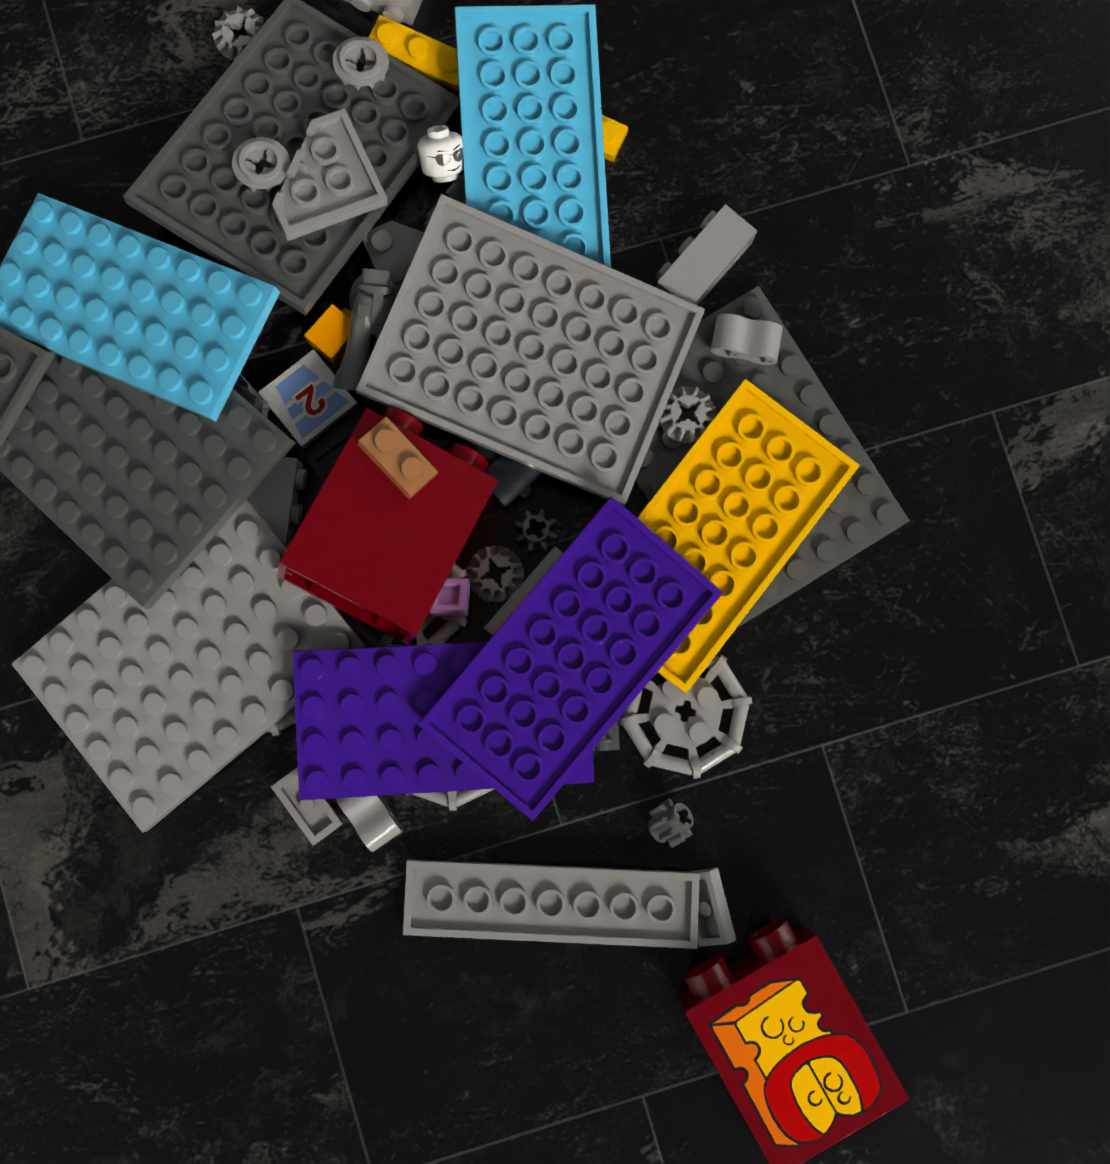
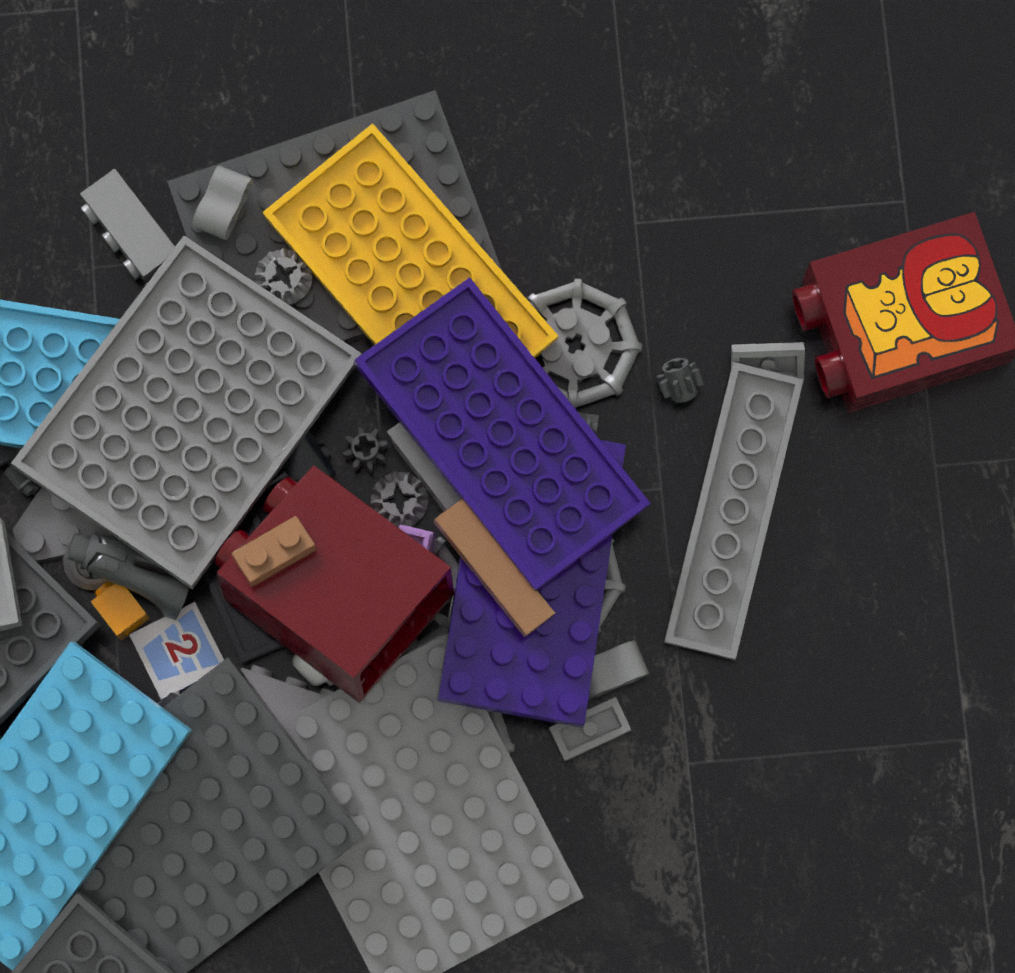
camera: 75 degrees left, 5 degrees down
(432, 679) = (493, 568): none -> medium nougat tile

